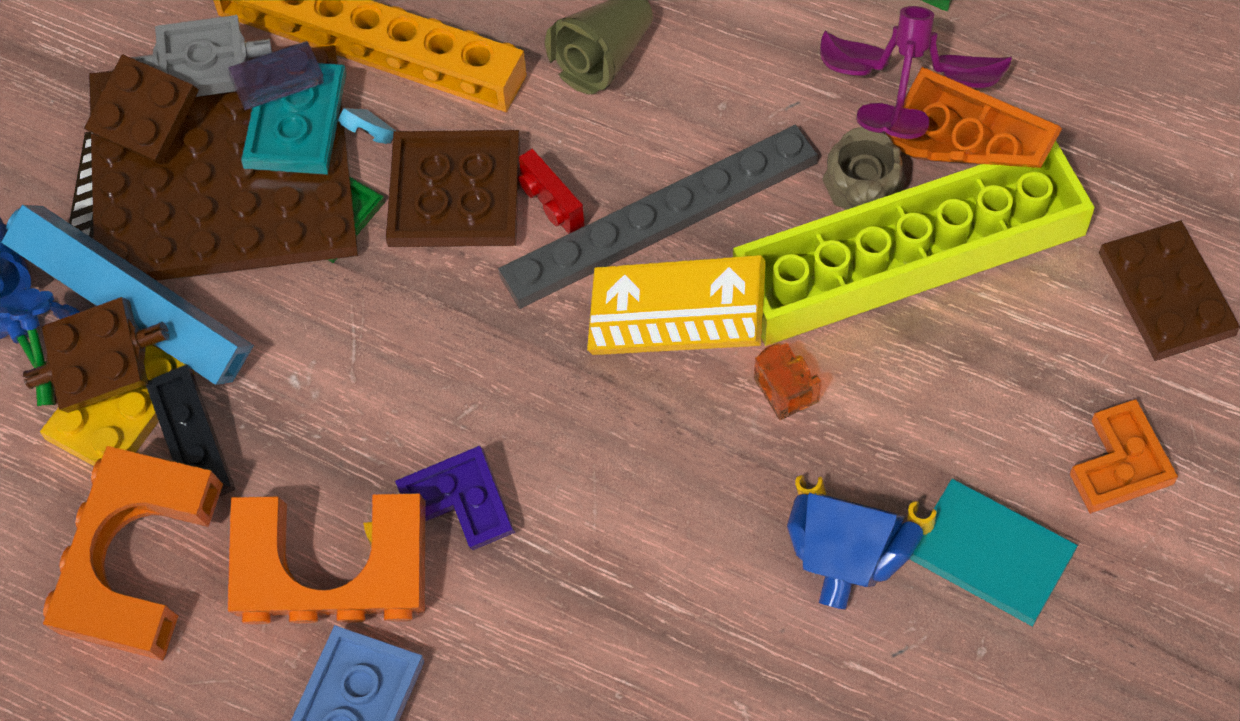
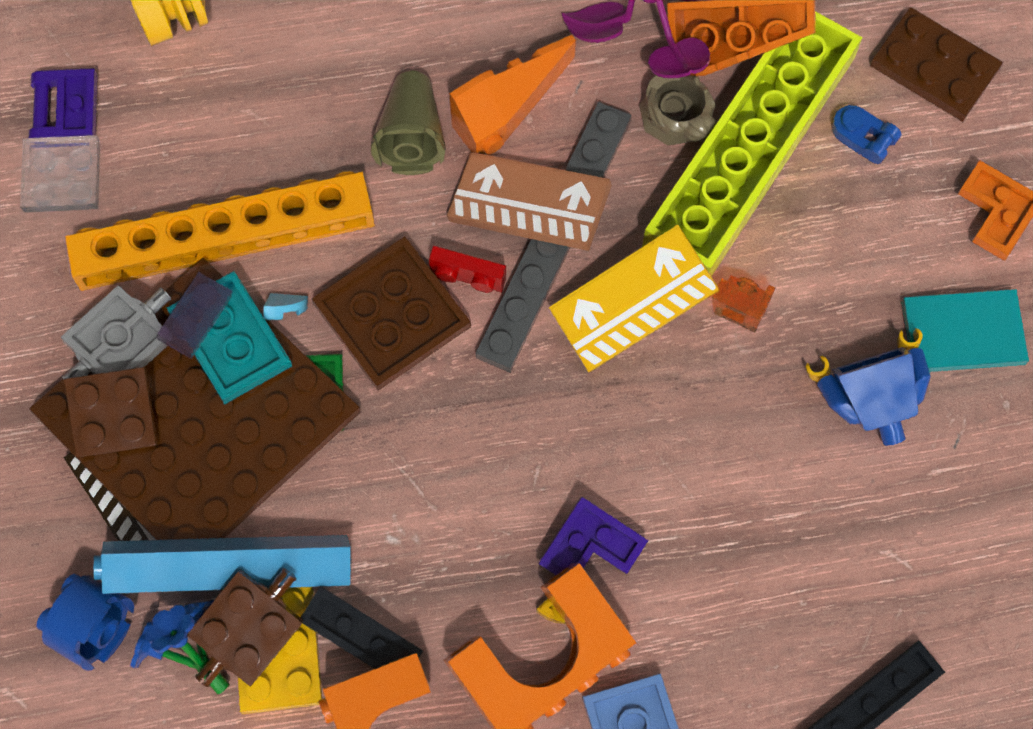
camera: 40 degrees left, 10 degrees up
(656, 168) = (529, 200): none -> nougat tile
(704, 68) = (494, 105): none -> orange wedge
(1034, 294) = (853, 125): none -> blue plate

